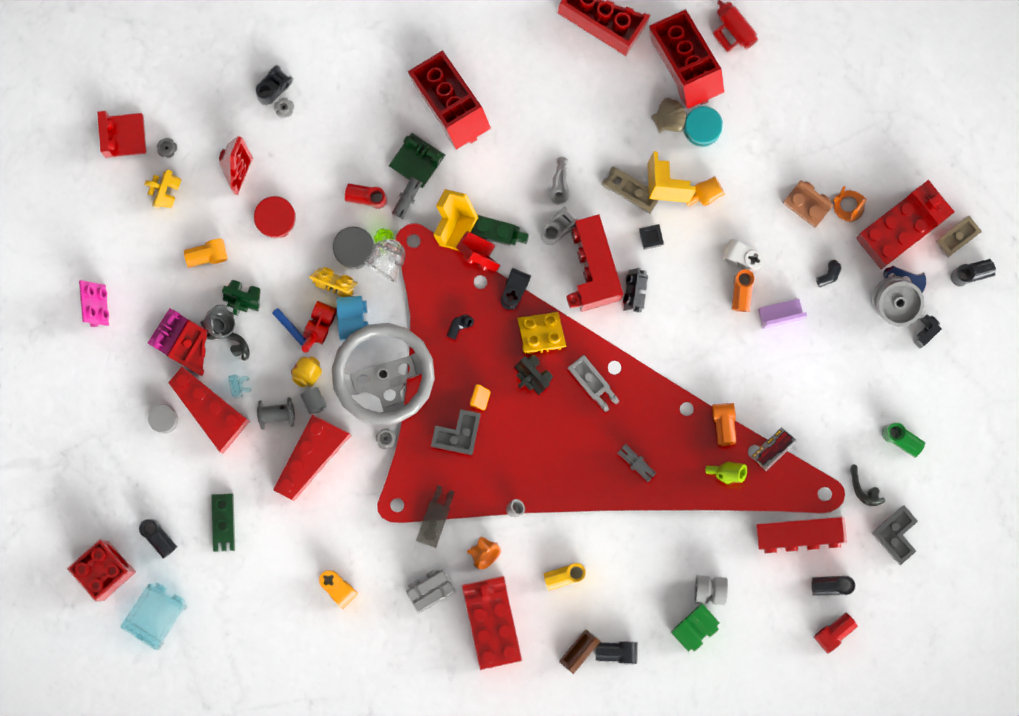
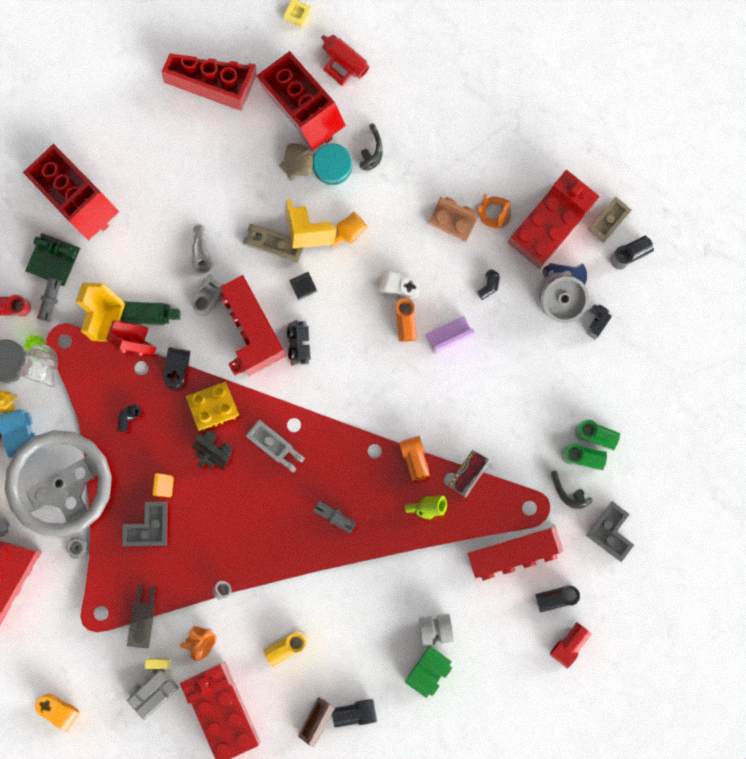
camera: 10 degrees left, 0 degrees up
(441, 564) = (157, 663): none -> light yellow tile
(742, 131) = (373, 161): none -> pearl dark grey piece
(888, 458) = (586, 457): none -> green piece

